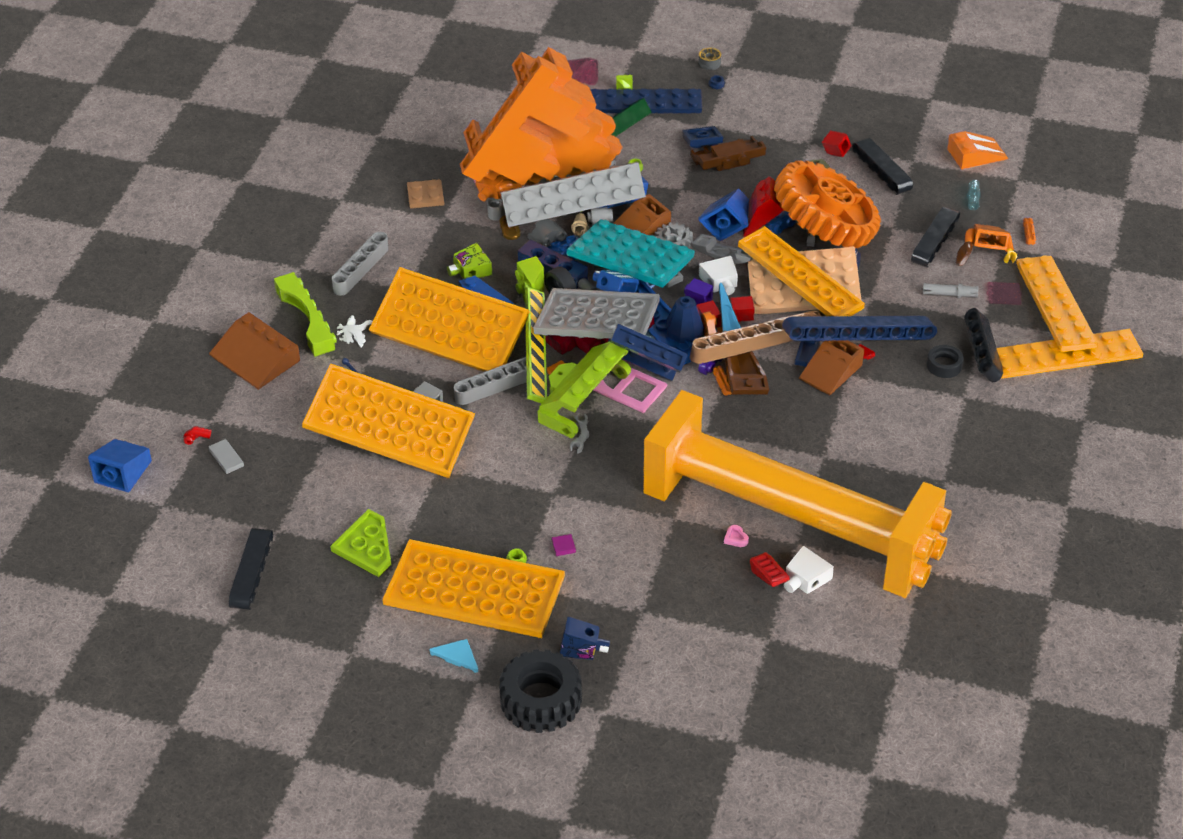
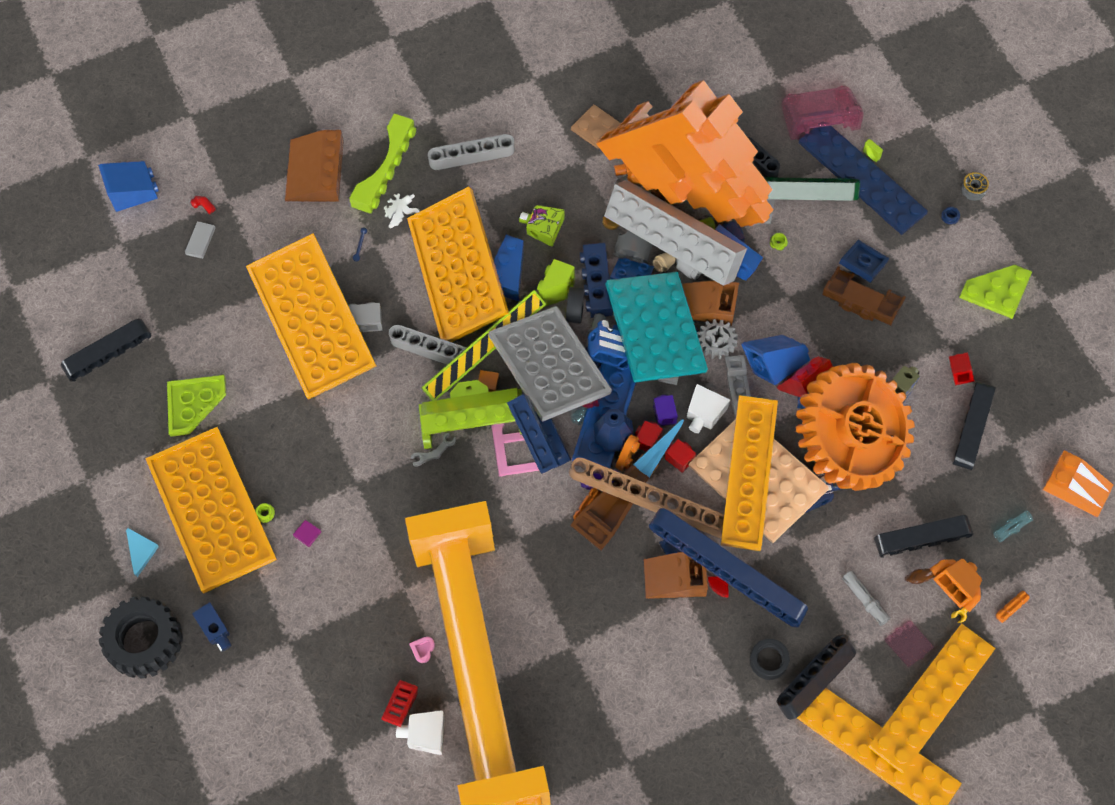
camera: 50 degrees right, 20 degrees up
(797, 97) = (998, 290): none -> lime plate

